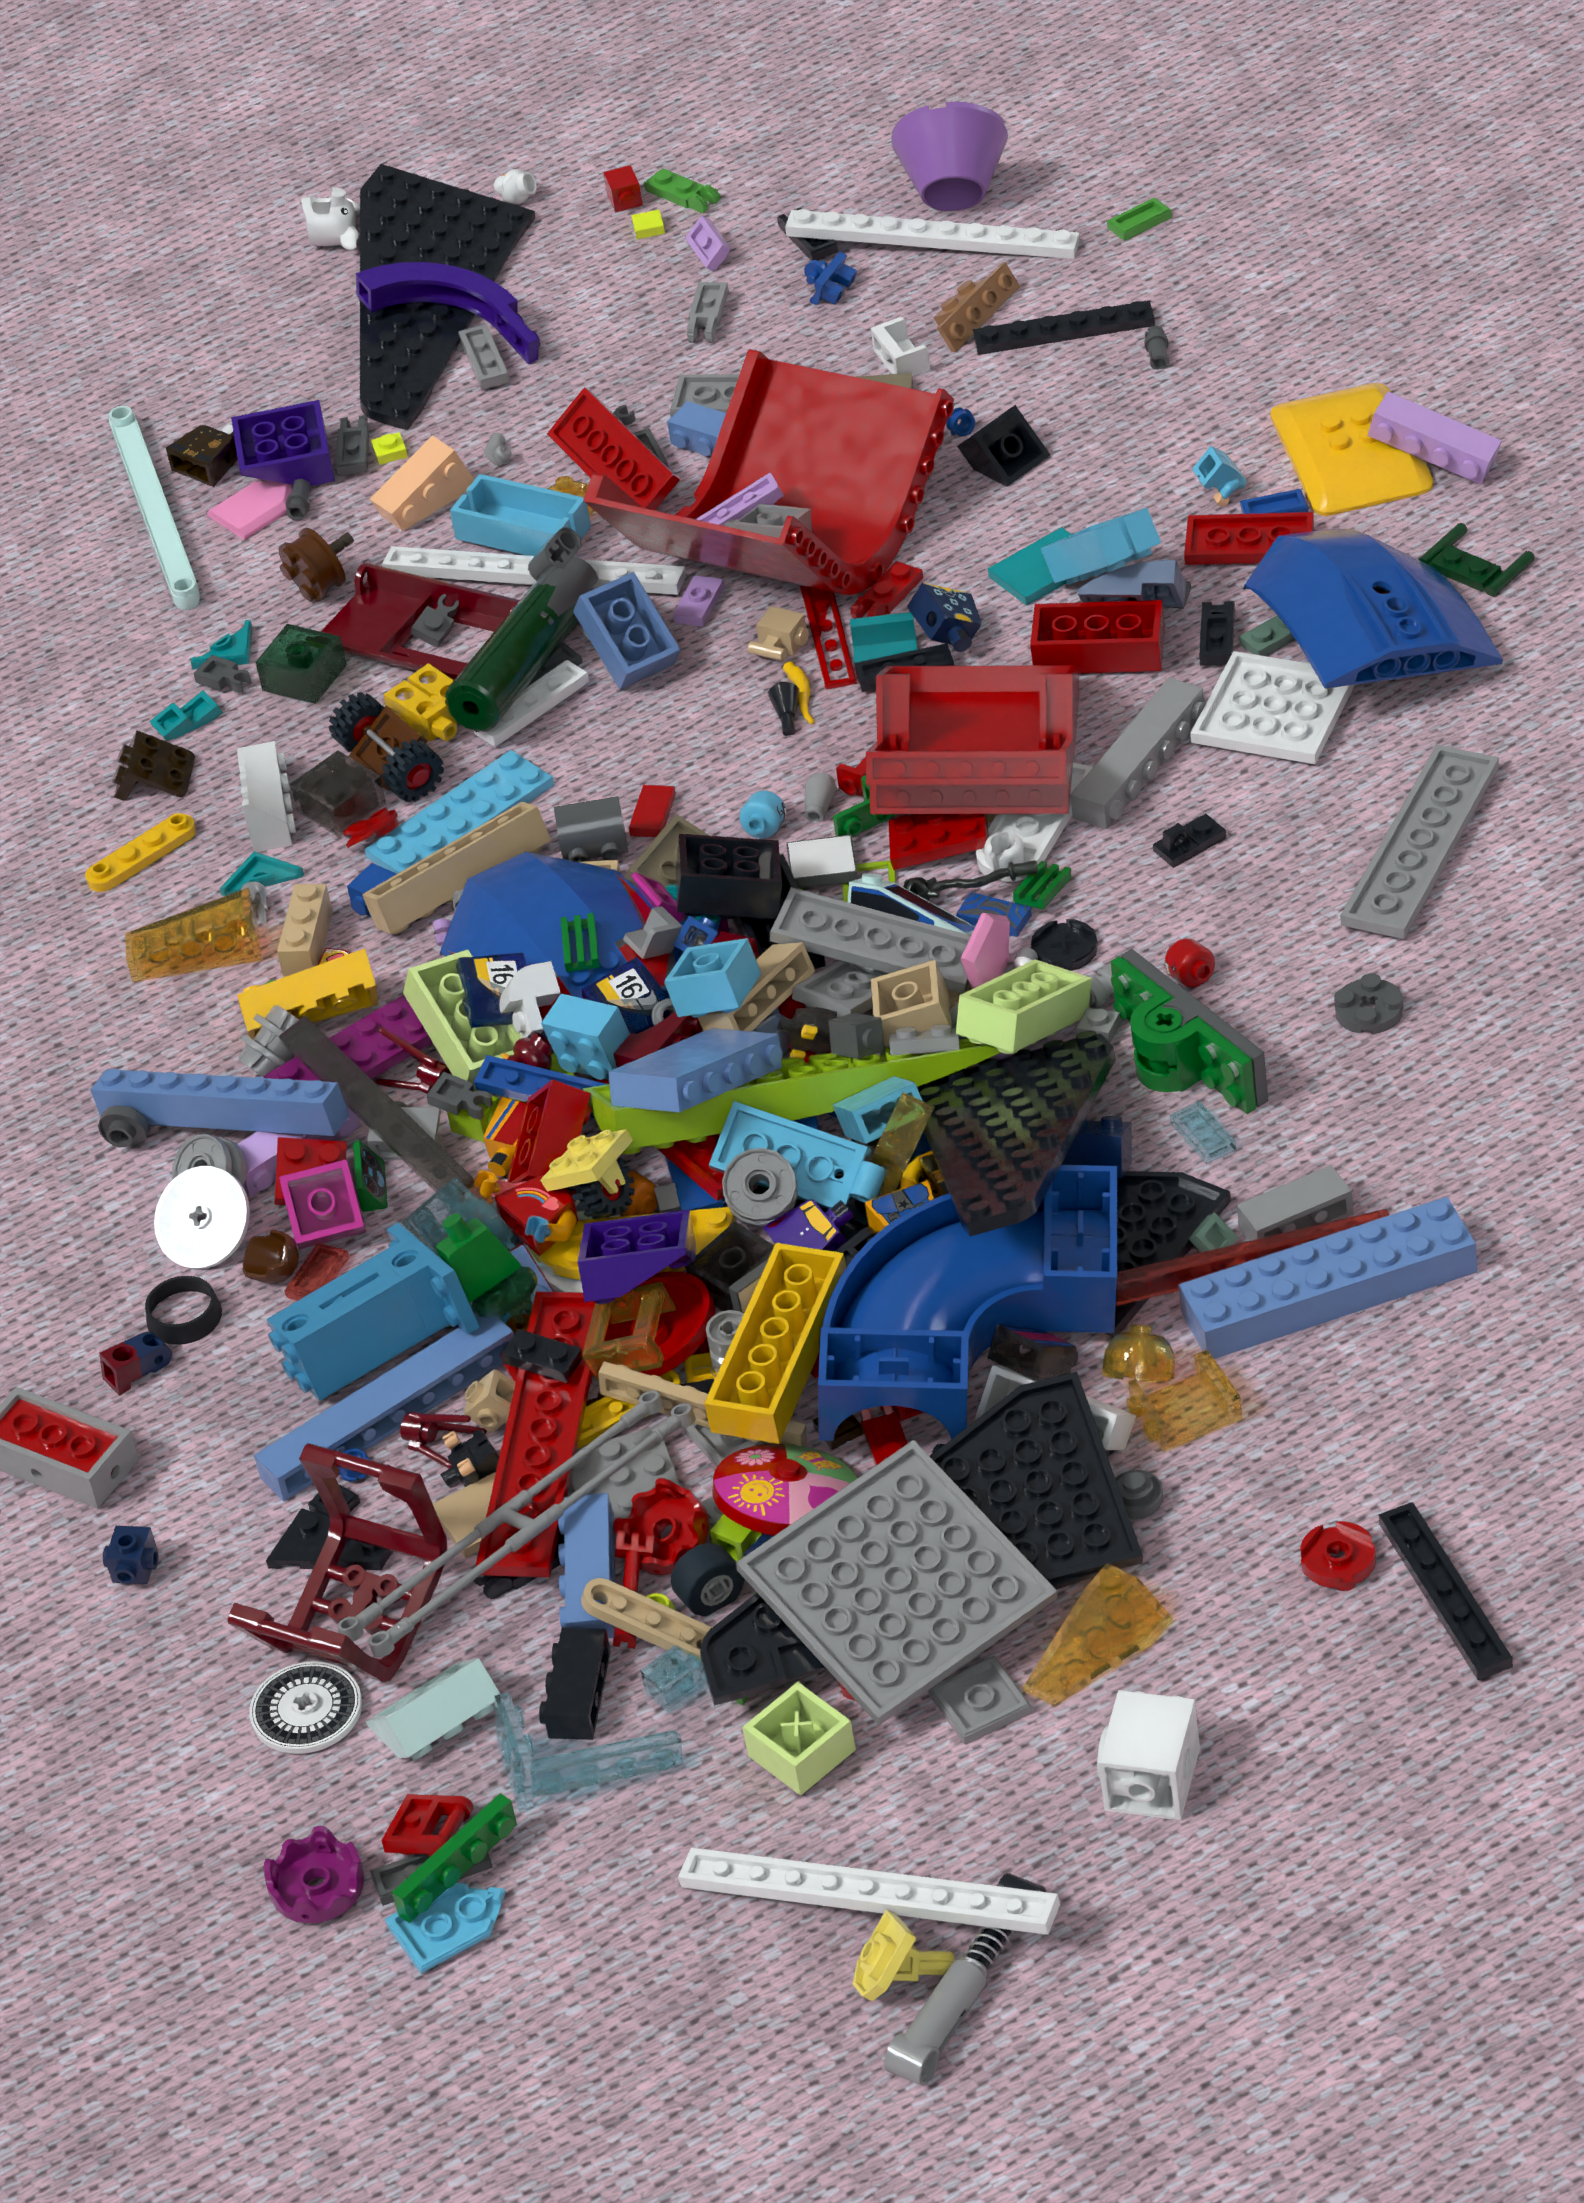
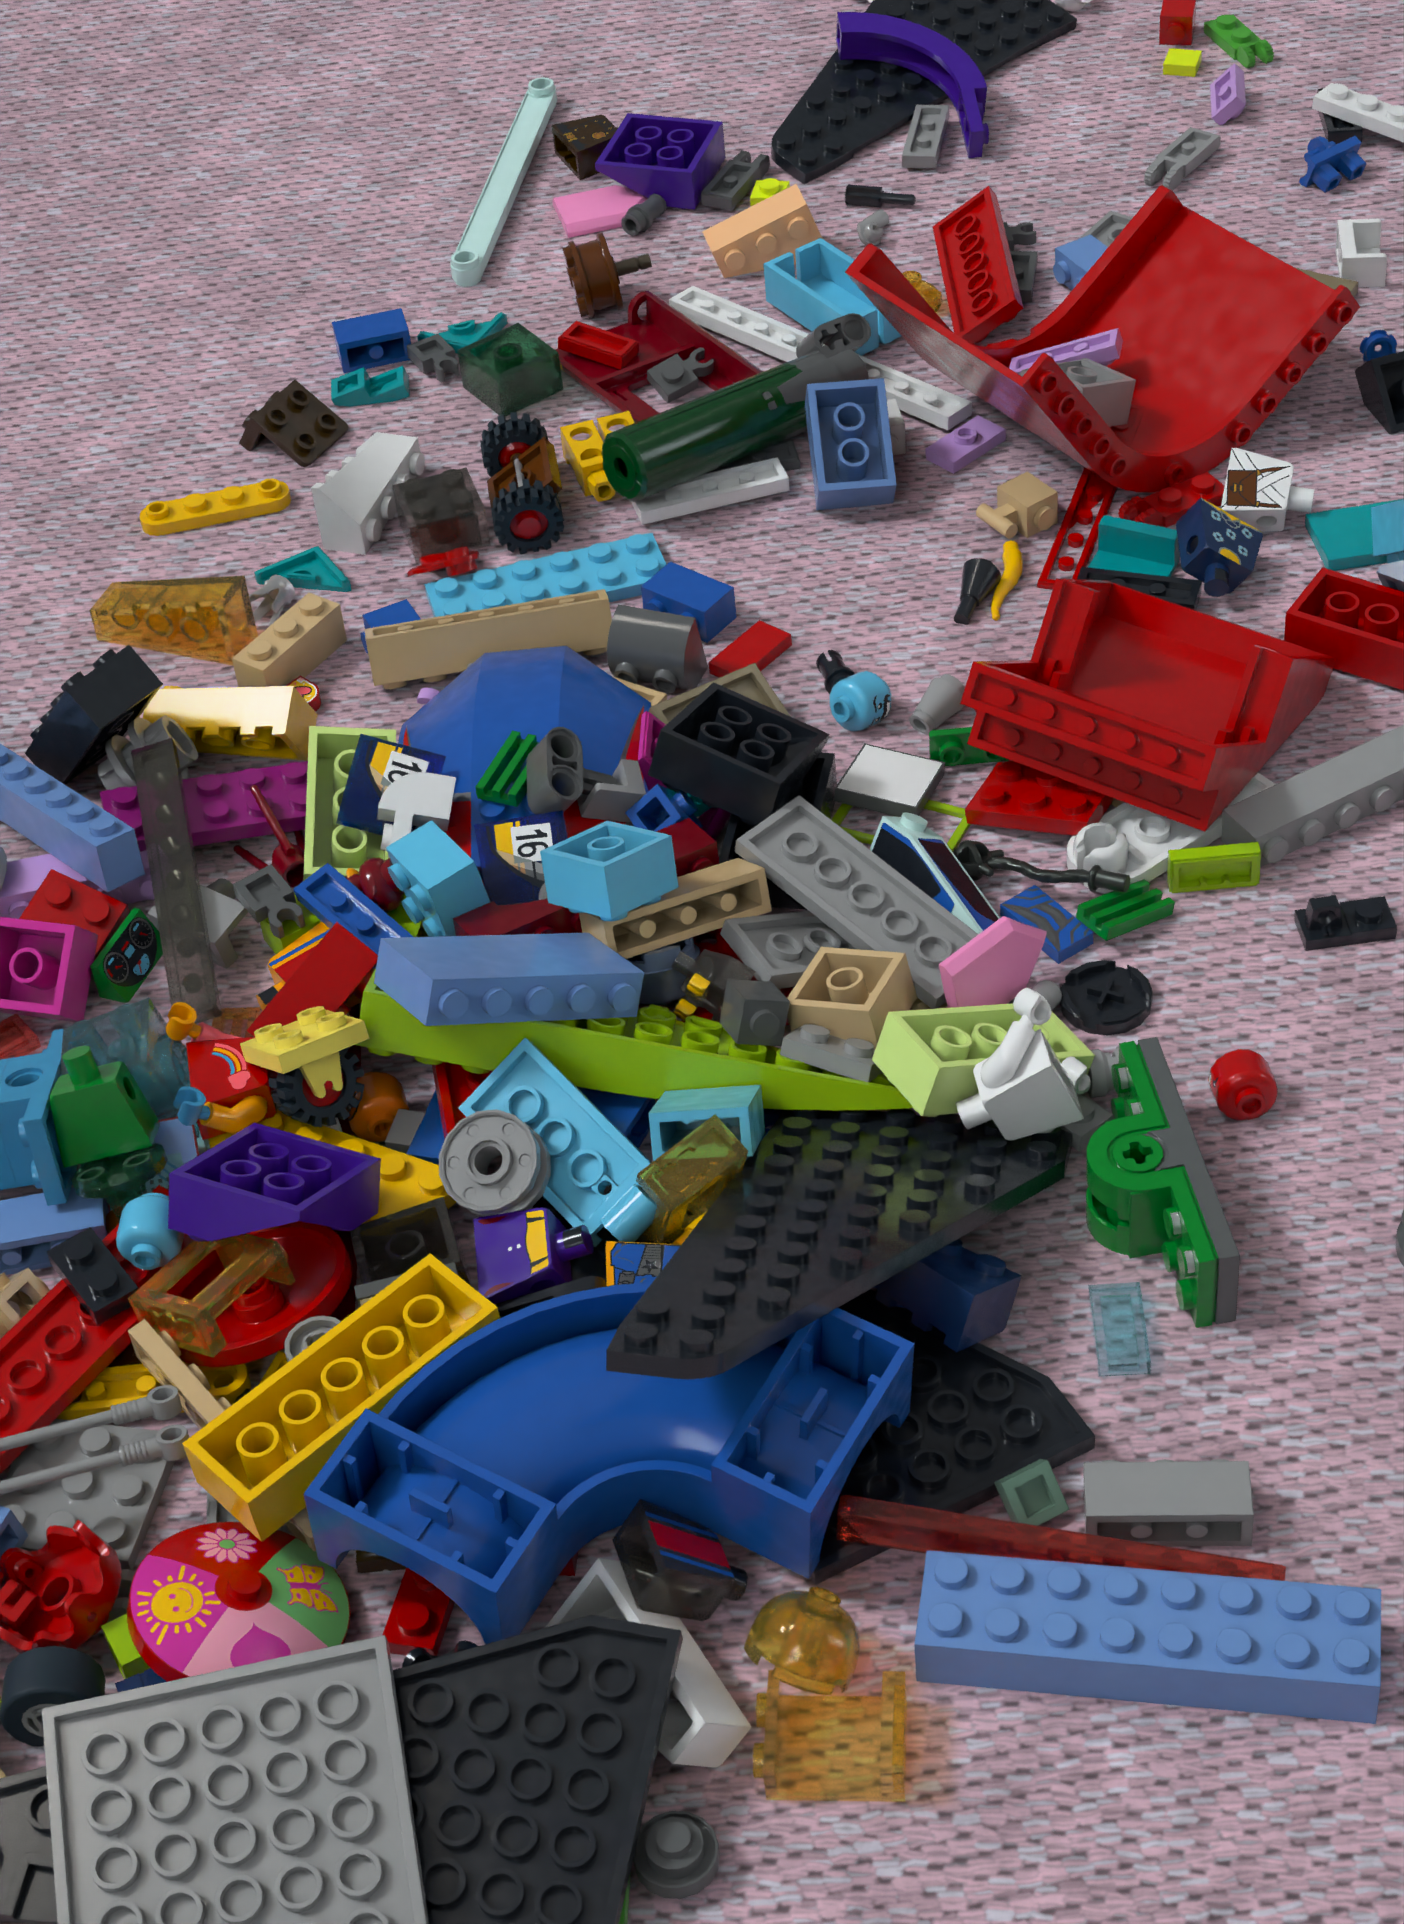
camera: 25 degrees right, 0 degrees up
(159, 678) = (372, 340): none -> blue brick
(225, 1022) = (91, 713): none -> black brick
(354, 620) = (598, 345): none -> red tile
(478, 422) = (874, 196): none -> black axle
(565, 1312) = (144, 1232): none -> medium azure head
(579, 784) = (691, 595): none -> blue brick
(618, 932) = (558, 773): none -> dark grey beam
(727, 801) = (833, 670): none -> black pin
(949, 561) = (1261, 490): none -> torso
(1070, 1006) = (1024, 1081): none -> white torso
(1083, 836) = (1214, 867): none -> lime plate

